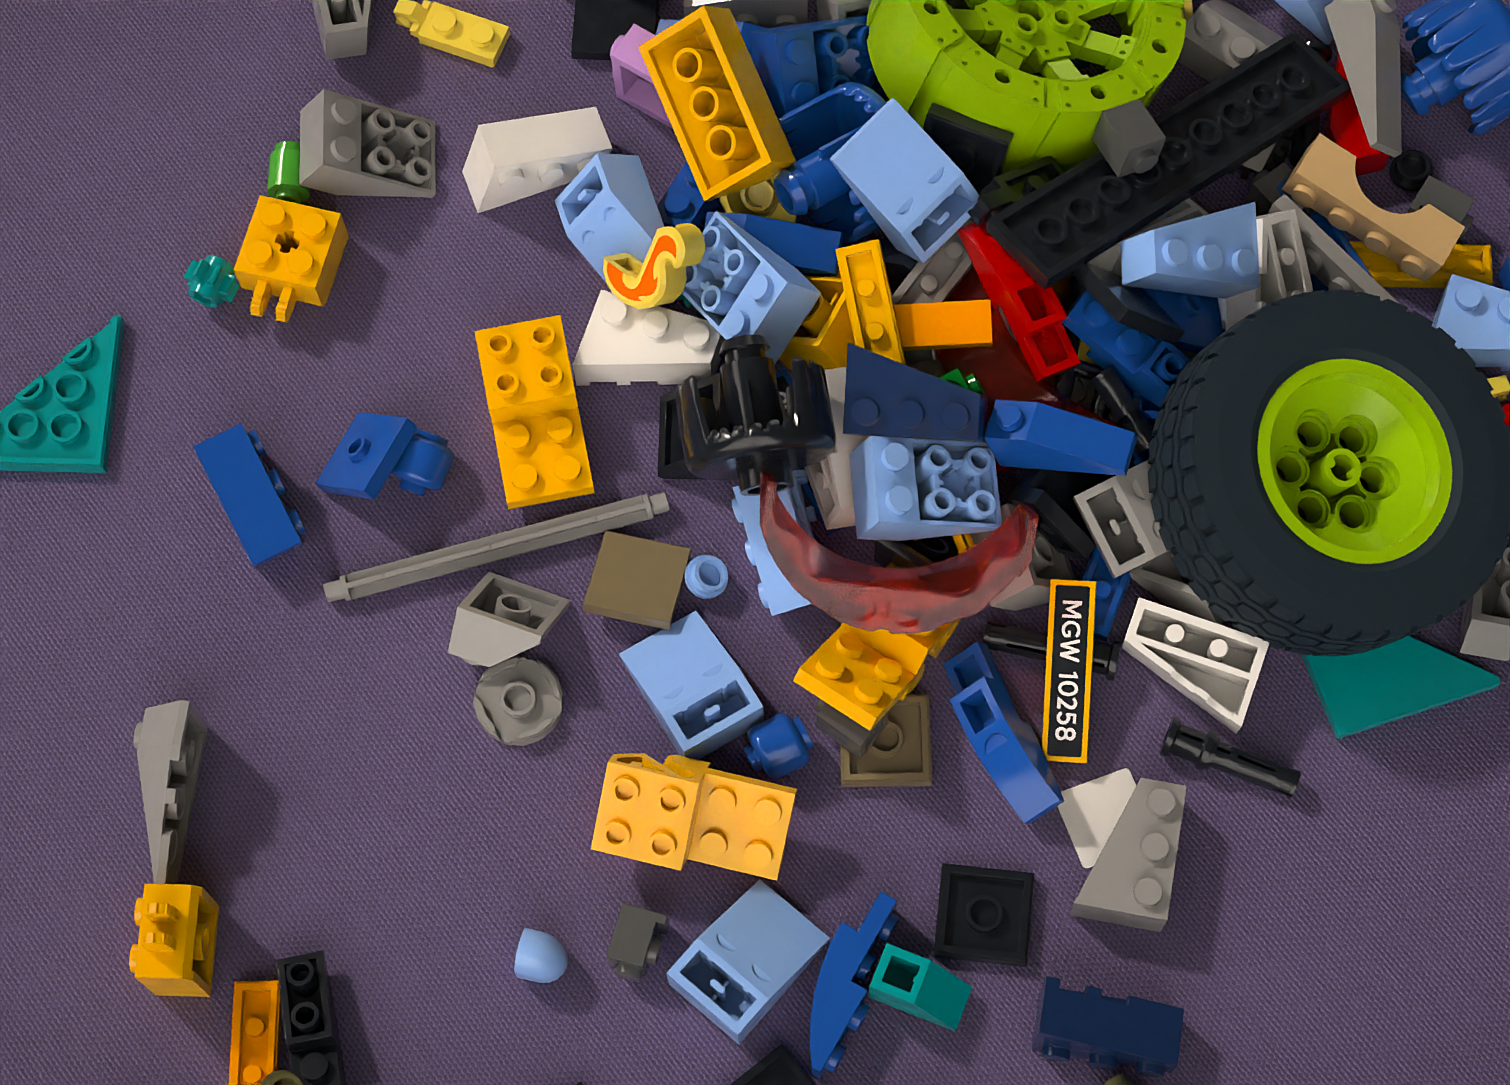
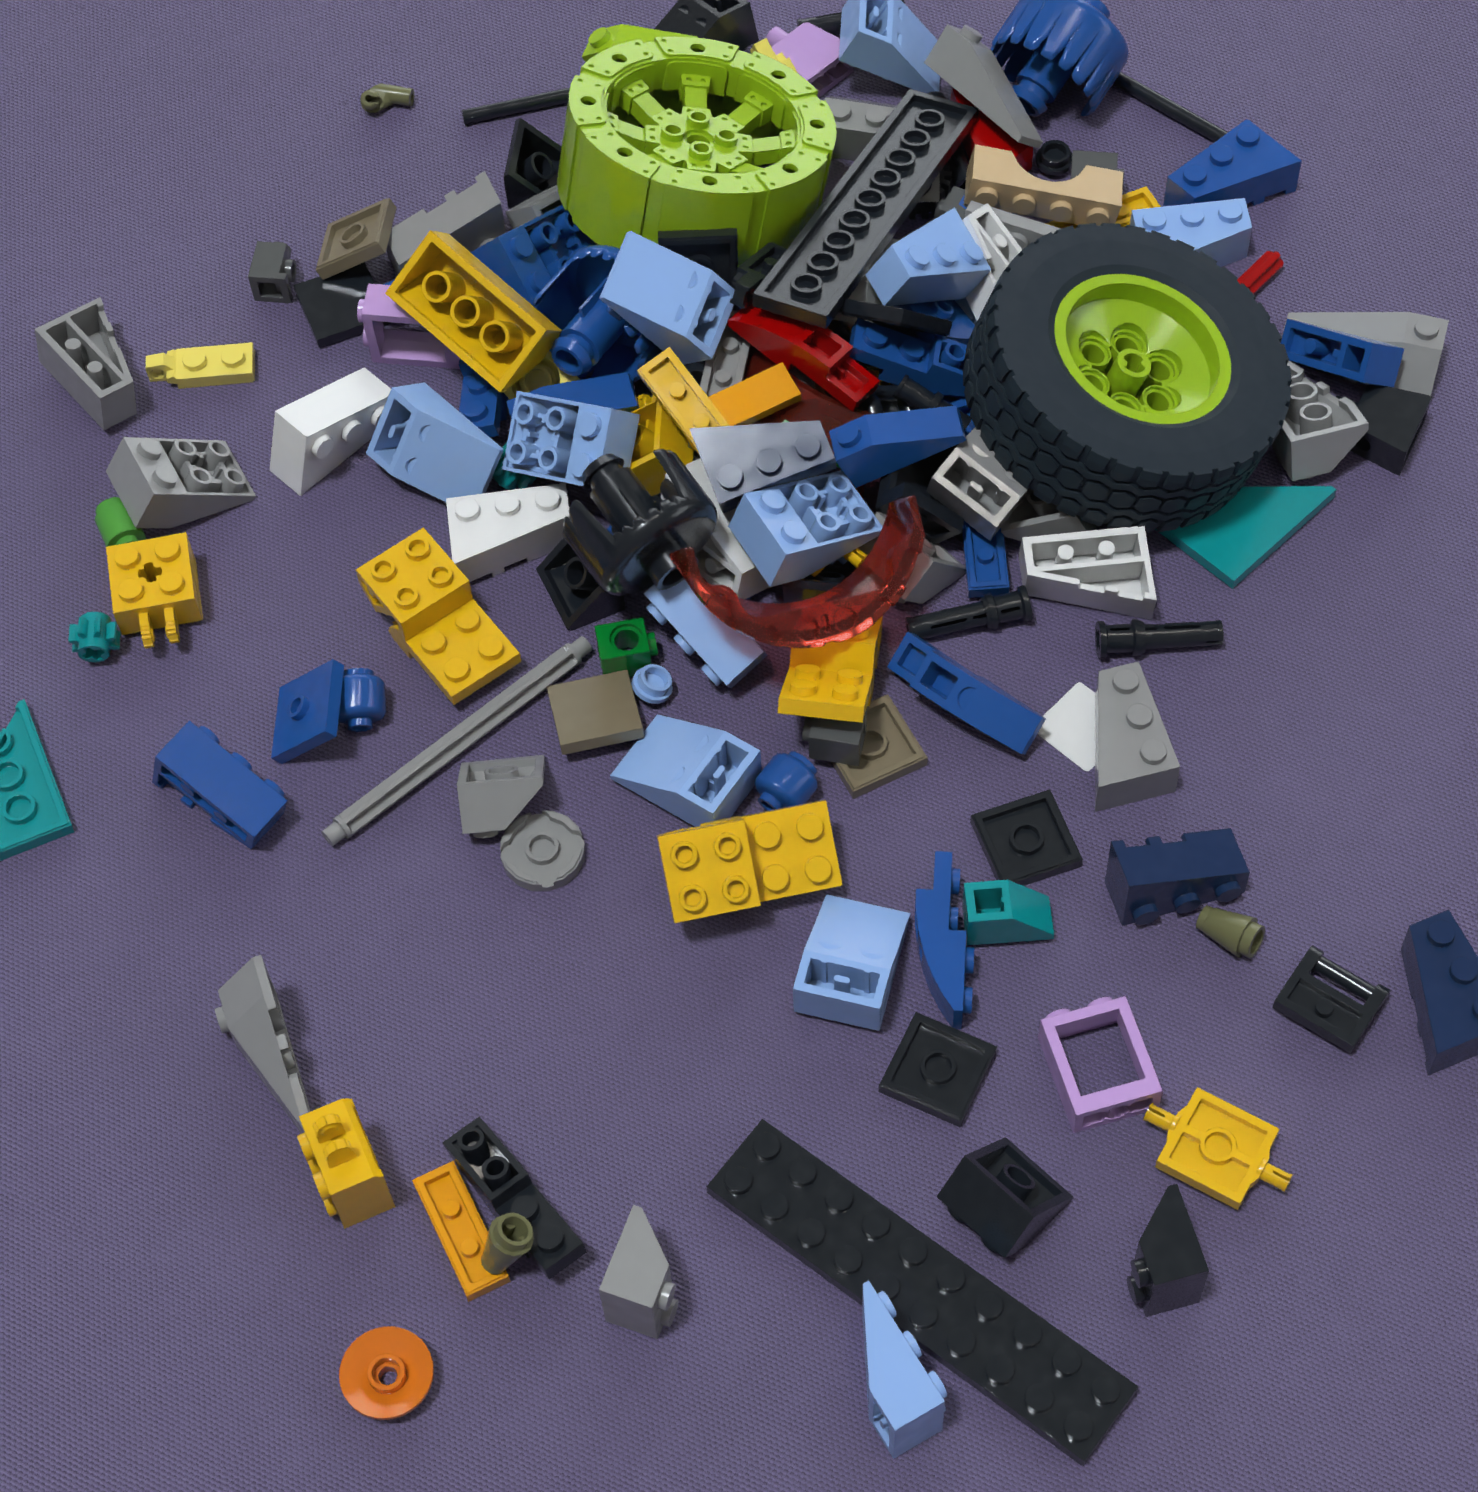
camera: 25 degrees left, 10 degrees down
(540, 957) = (674, 1036): light blue piece -> none
(636, 941) = (749, 986): dark grey brick -> none
(662, 273) = (496, 454): light yellow animal -> none
(690, 510) = (618, 635): none -> green brick
(1069, 670) = (994, 620): tile -> none
(1129, 138) = (831, 196): dark grey brick -> none

